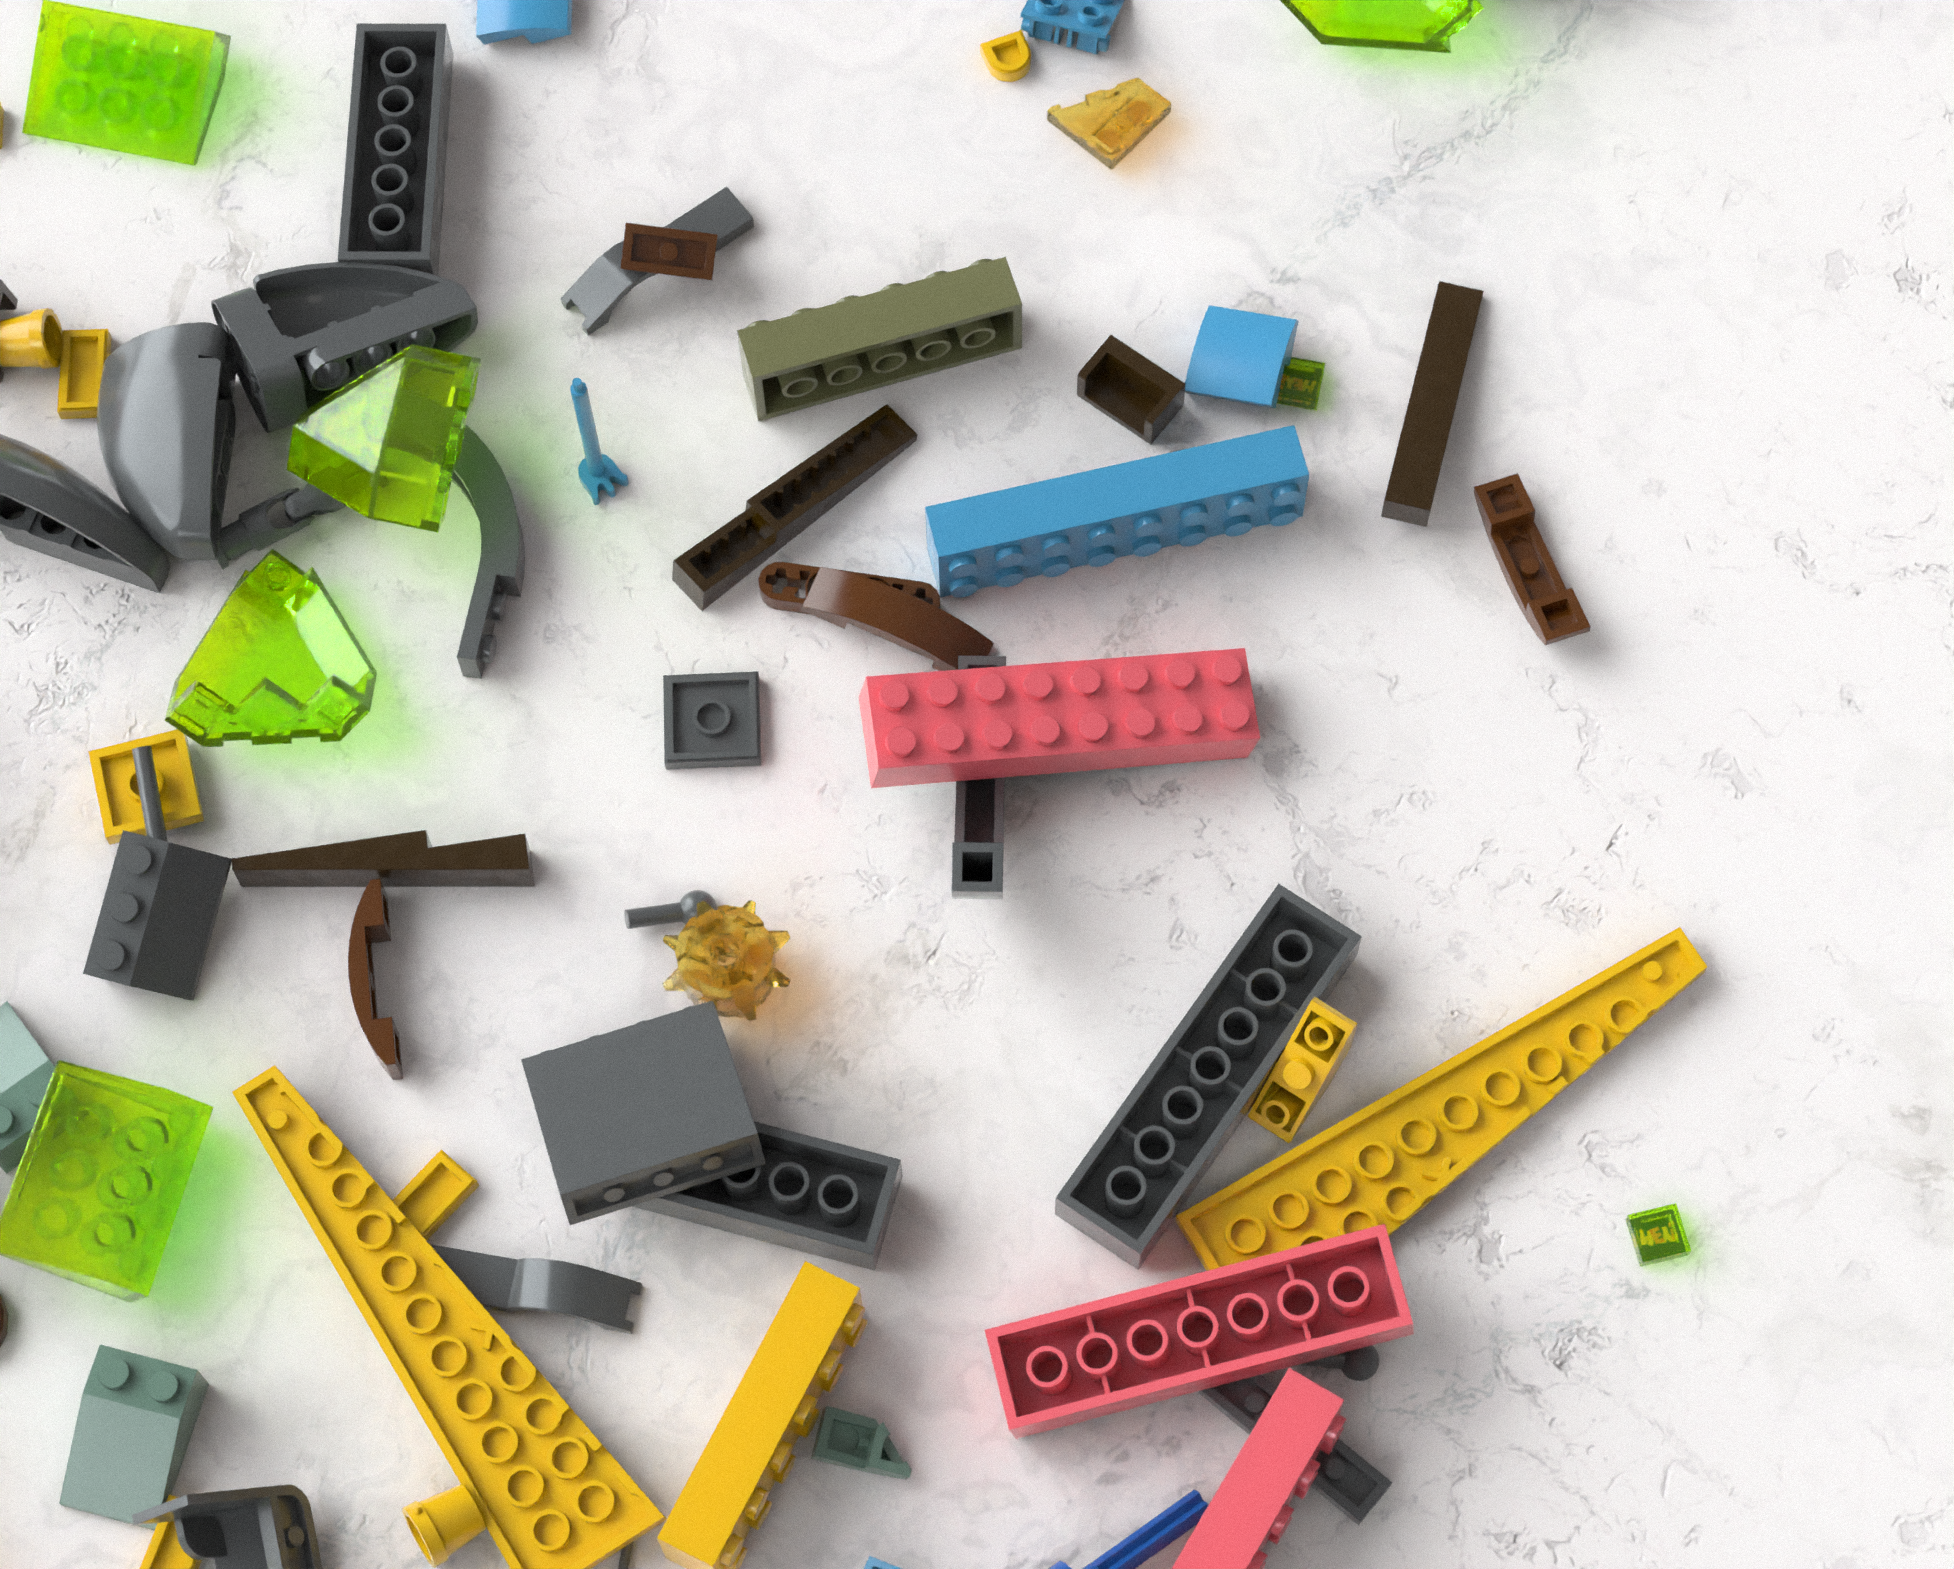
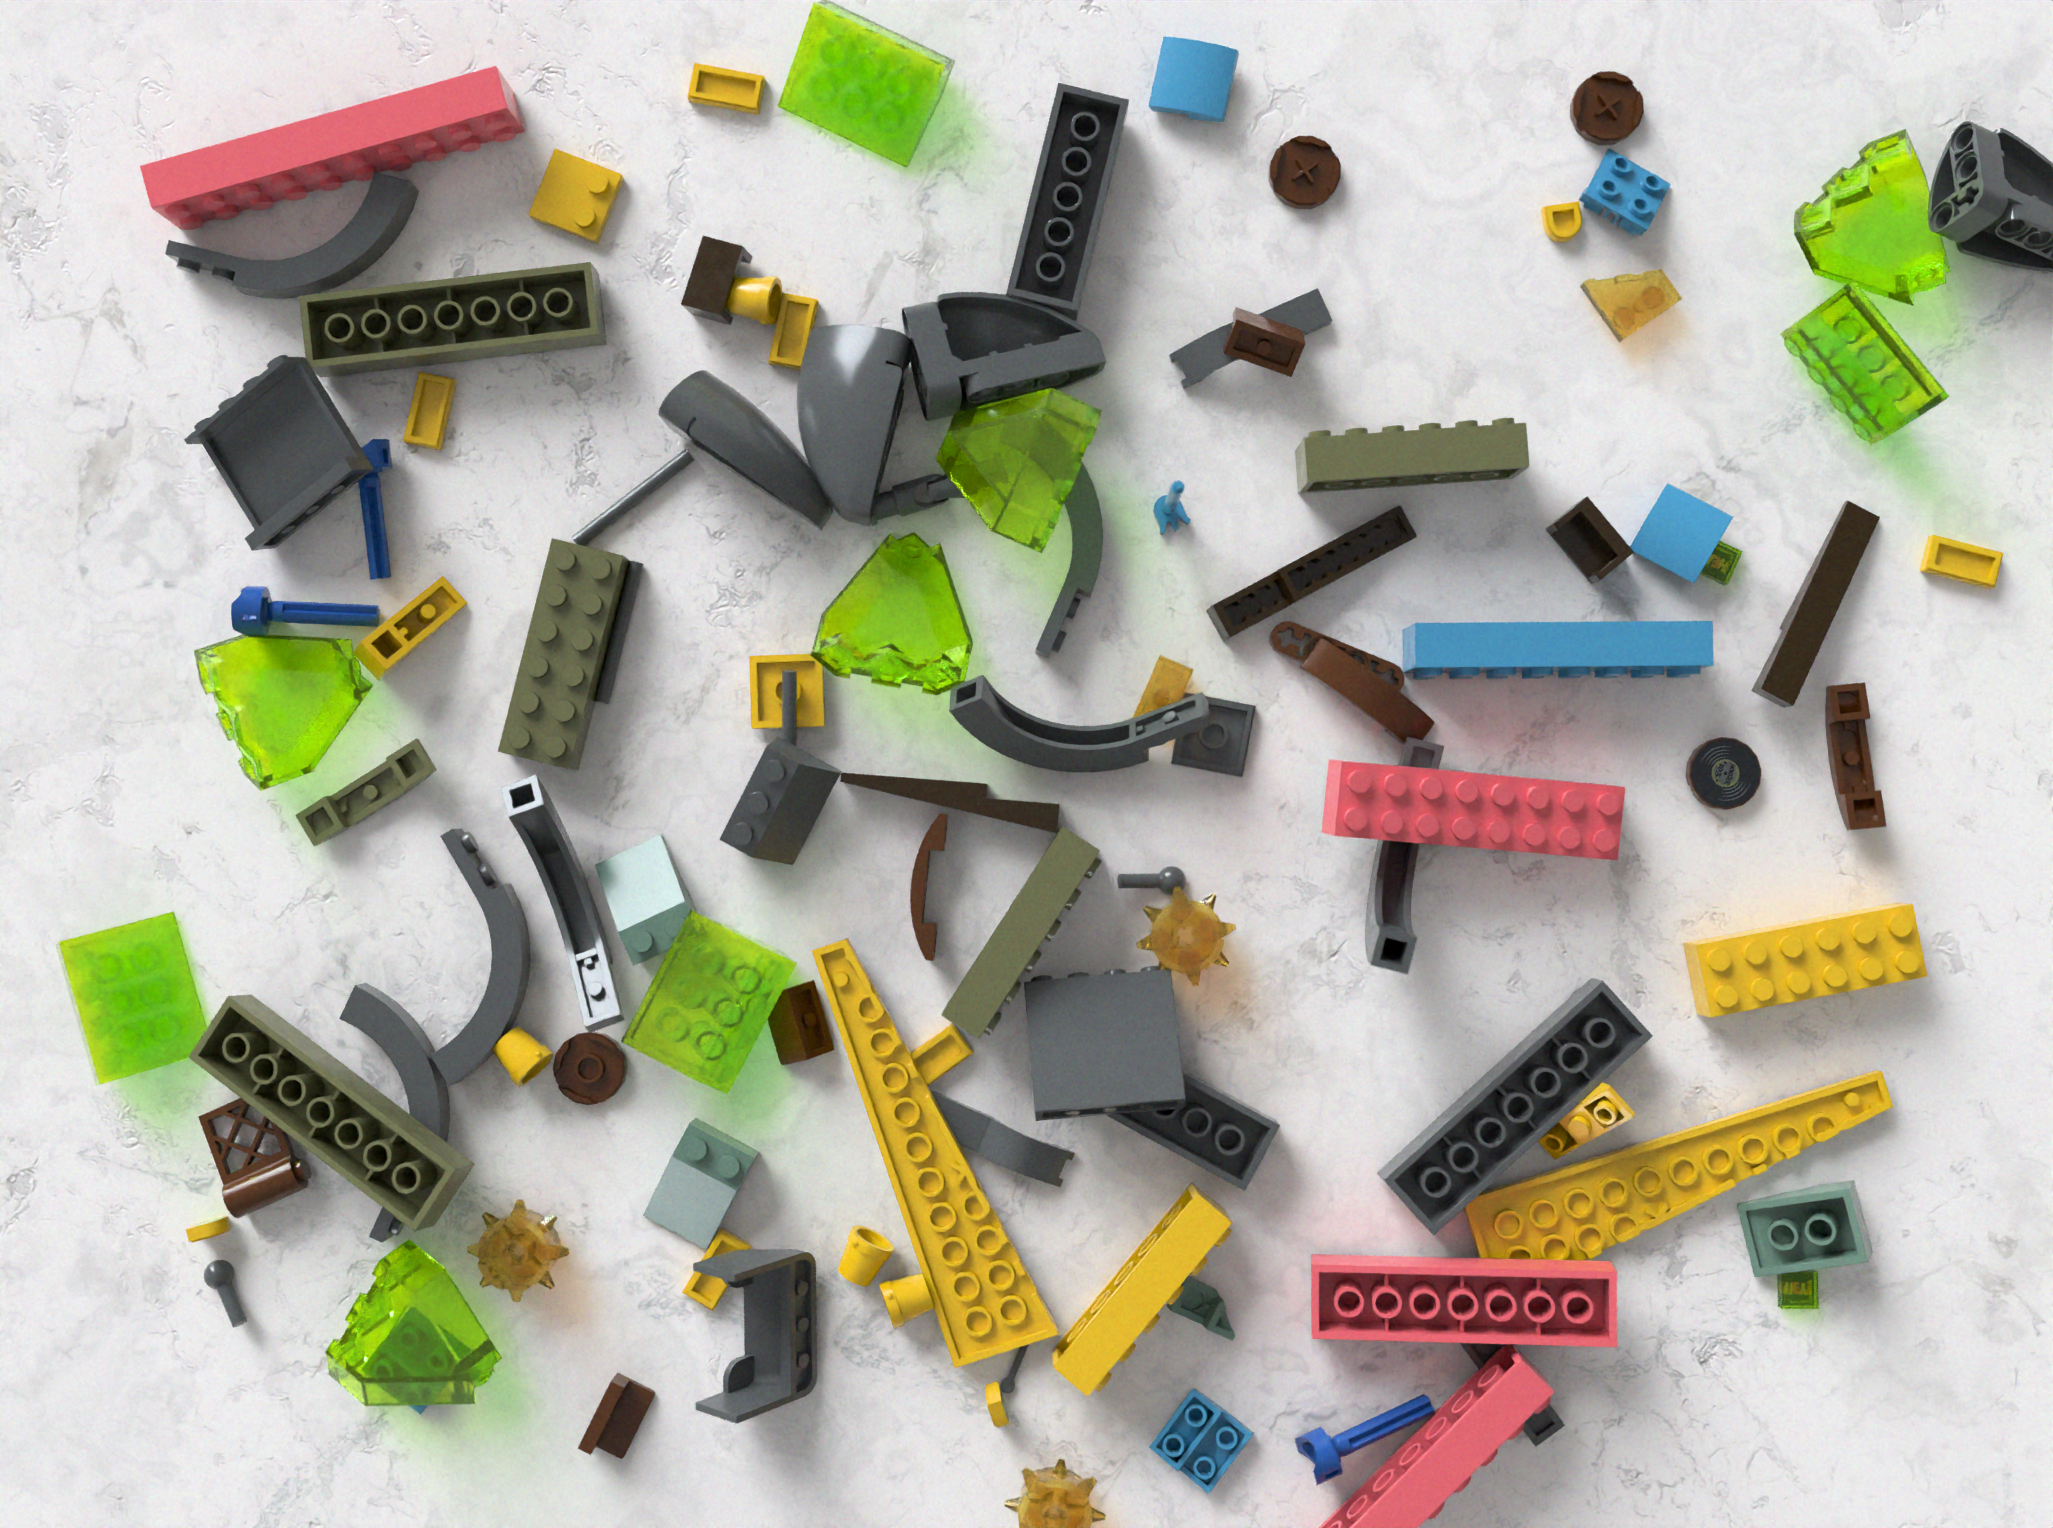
camera: 10 degrees right, 20 degrees up
(231, 1196) = (799, 1024): none -> reddish brown panel
(375, 1479) = (864, 1255): none -> yellow piece
(506, 1002) = (1021, 932): none -> olive brick
(522, 769) = (1070, 747): none -> dark grey arch
(633, 683) = (1164, 685): none -> clear yellow slope
(683, 70) = (1304, 172): none -> reddish brown tile
(1375, 621) = (1723, 773): none -> black tile
(1401, 116) = (1863, 364): none -> clear neon green slope
(1538, 813) = (1805, 959): none -> yellow brick
(1599, 319) = (1961, 561): none -> yellow tile
(1641, 1148) = (1805, 1229): none -> sand green slope

